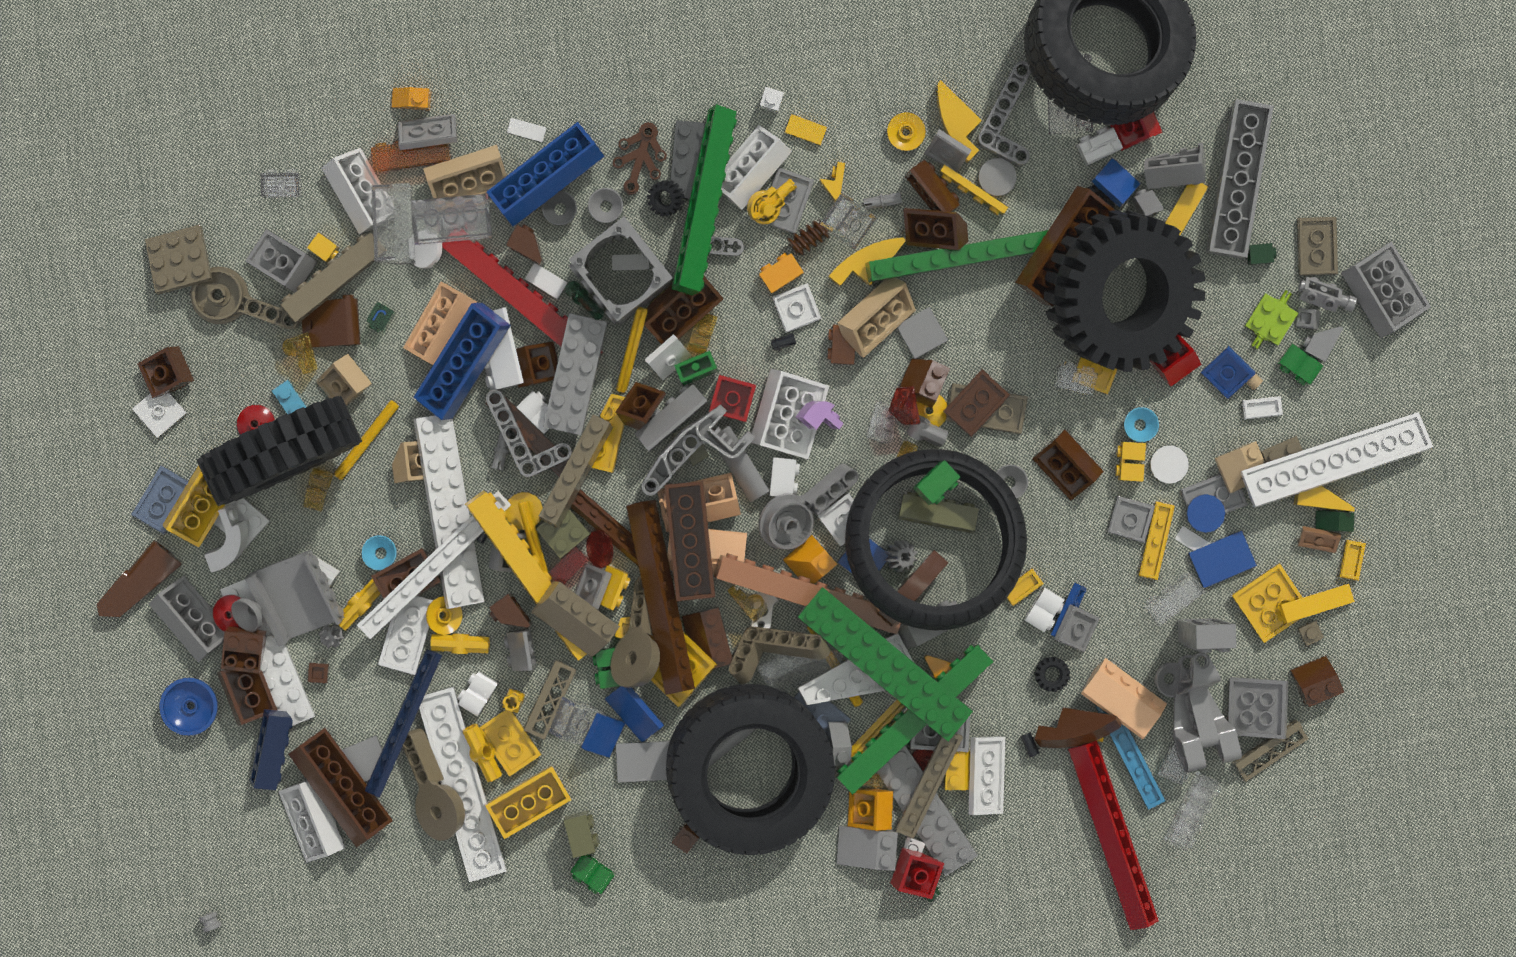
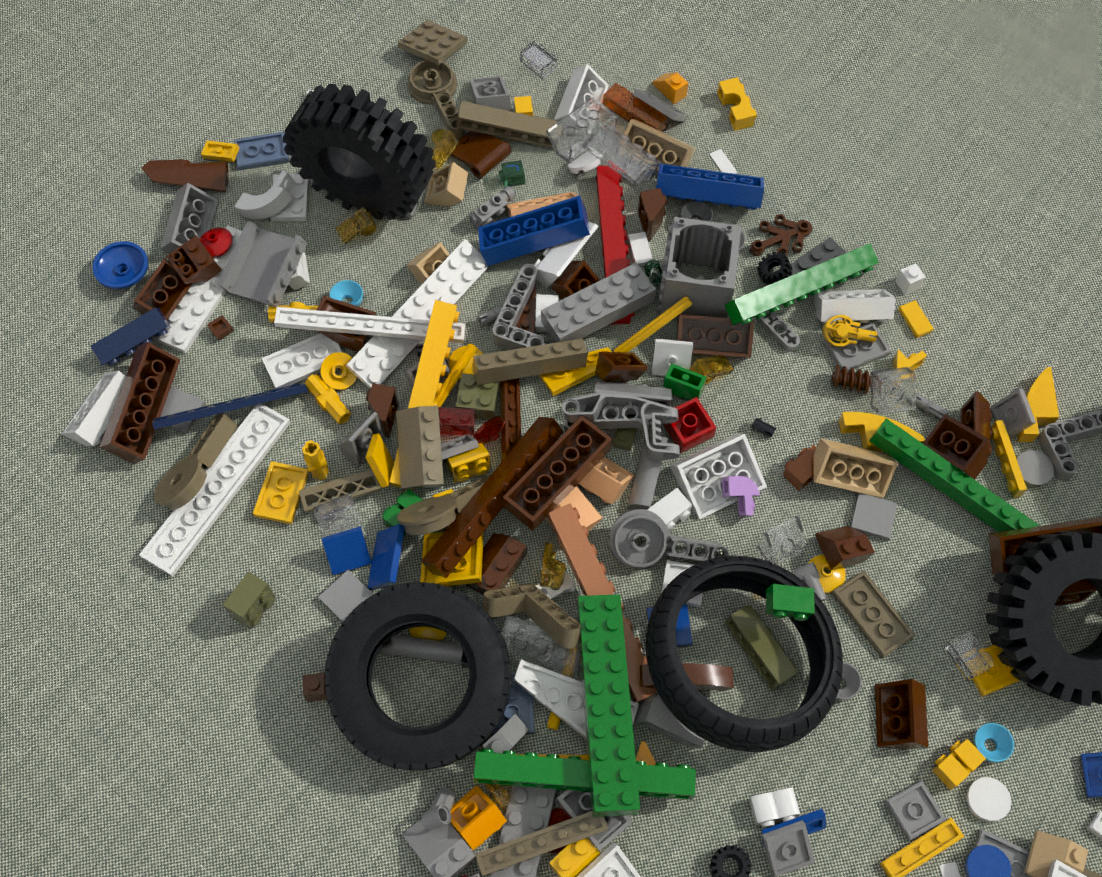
camera: 45 degrees right, 25 degrees down
(135, 536) = (220, 151): none -> yellow plate
(165, 371) = (356, 77): reddish brown slope -> none
(193, 511) = (266, 164): yellow slope -> none
(244, 616) = (223, 243): light grey piece -> none
(331, 636) = (255, 313): light grey gear -> none
(366, 439) = (421, 230): yellow axle -> none
(402, 369) = (494, 206): none -> light grey brick
(478, 693) = (294, 439): white brick -> none
(482, 752) = (249, 488): yellow piece -> none
(498, 68) = (733, 92): none -> yellow arch
(527, 802) = (242, 540): yellow brick -> none
(555, 653) = (380, 460): none -> yellow tile
(592, 873) = (224, 641): green brick -> none
(780, 273) = (807, 383): light orange brick -> none
(796, 308) = (795, 417): white tile -> none
(810, 560) = (631, 586): light orange slope -> none
(849, 832) = (439, 812): none -> light grey piece
(901, 556) = (700, 641): light grey gear -> none
(904, 406) = (812, 545): clear red slope -> none
(913, 124) = (996, 375): yellow dish -> none
(976, 403) = (869, 599): reddish brown tile -> none
(1025, 585) = (772, 772): yellow tile -> none
(1178, 364) = (1066, 721): red slope -> none

